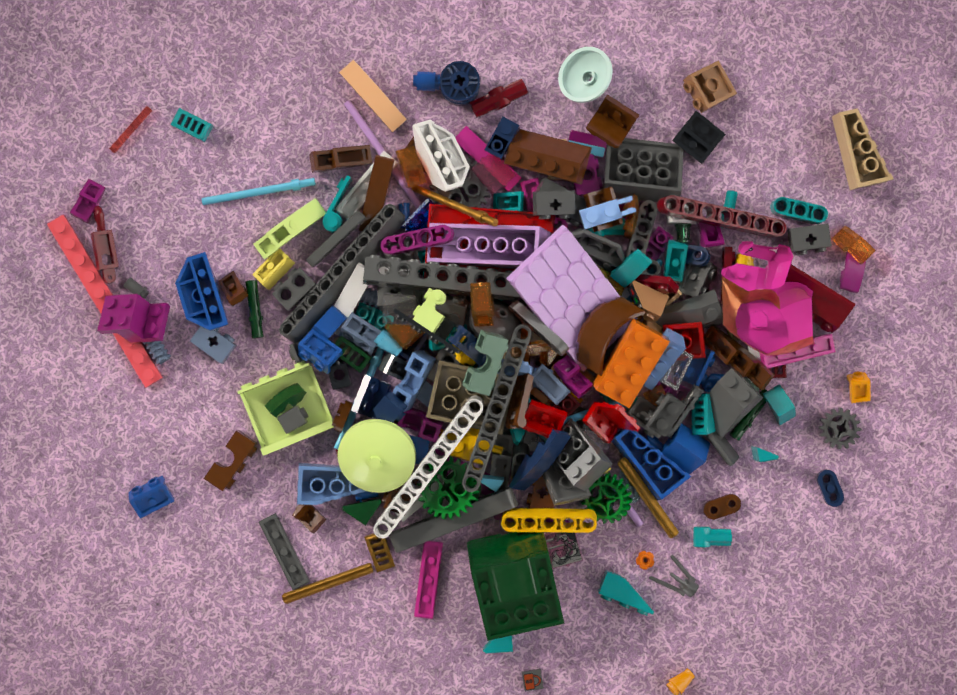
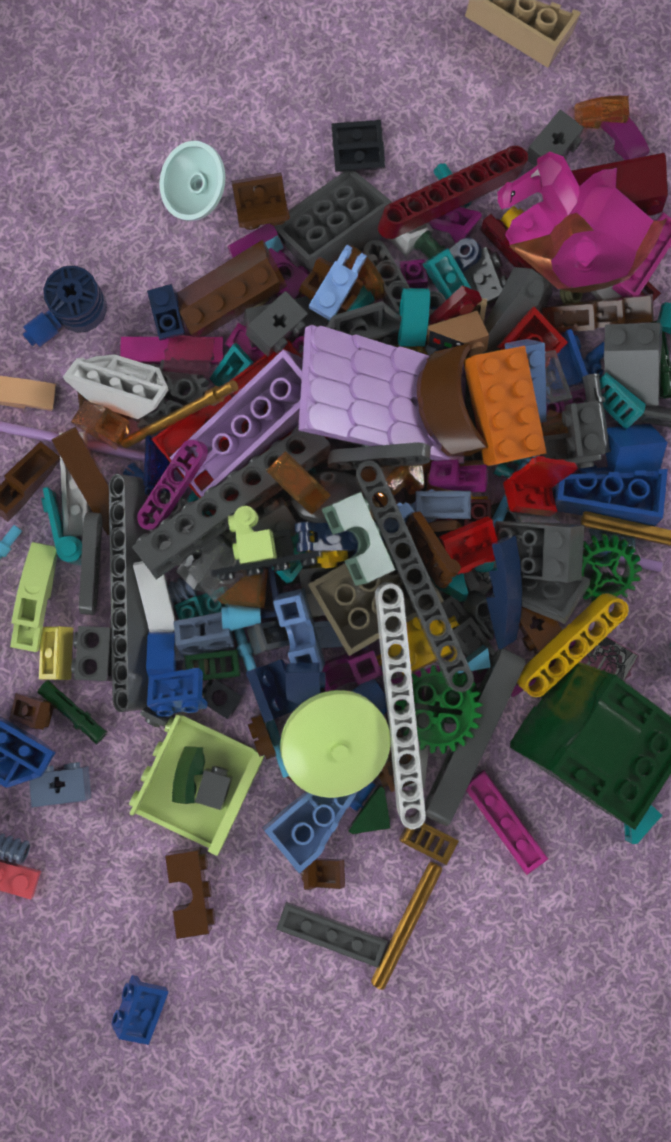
camera: 45 degrees left, 5 degrees down
(499, 98) = (128, 281): dark red piece -> none
(709, 86) = (322, 90): medium nougat plate -> none
(808, 210) = (525, 117): teal beam -> none

